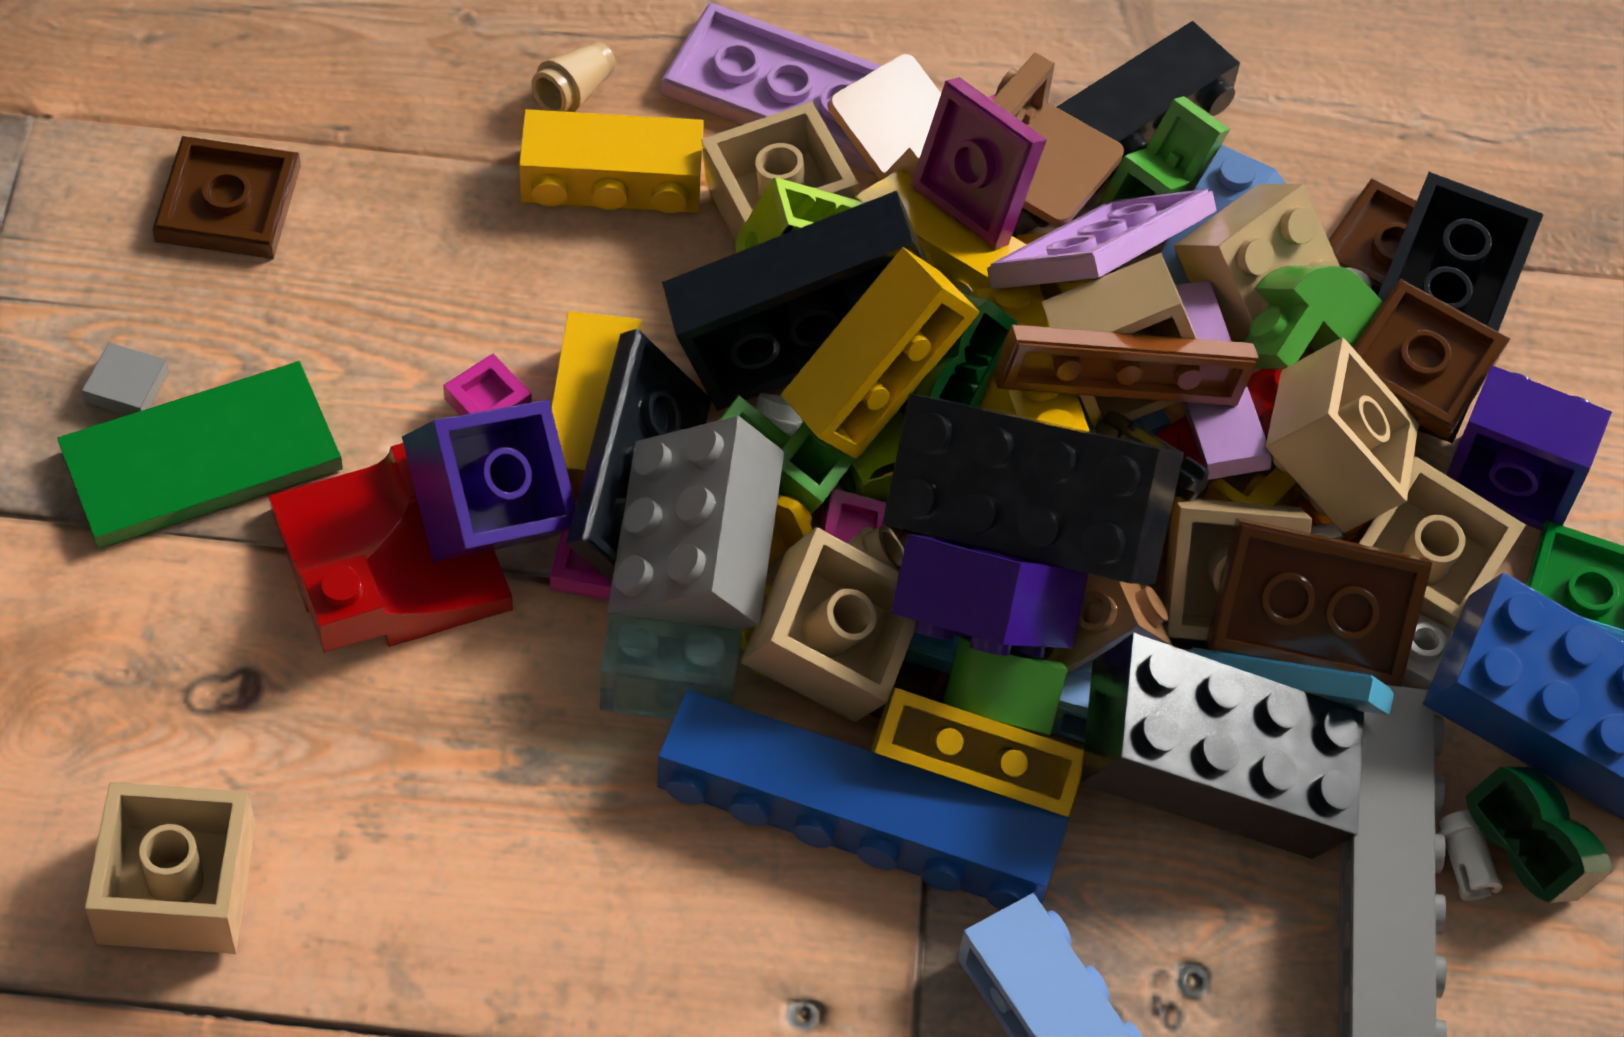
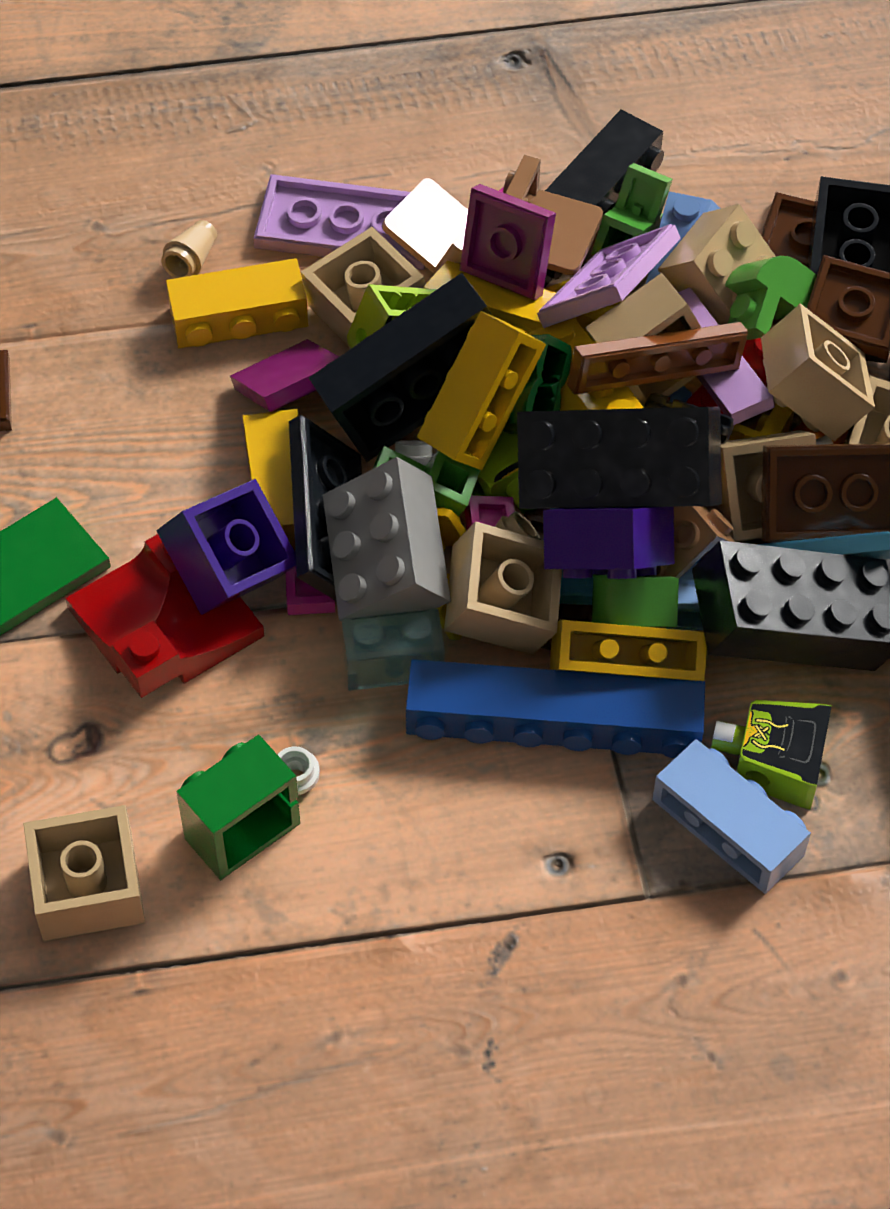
camera: 10 degrees left, 0 degrees up
(398, 830) = (238, 806): none -> green piece
(485, 388) = (197, 485): dark pink plate -> none
(487, 784) = (302, 760): none -> white plate
(633, 272) = (283, 375): none -> magenta tile
(1145, 932) = (779, 747): none -> torso

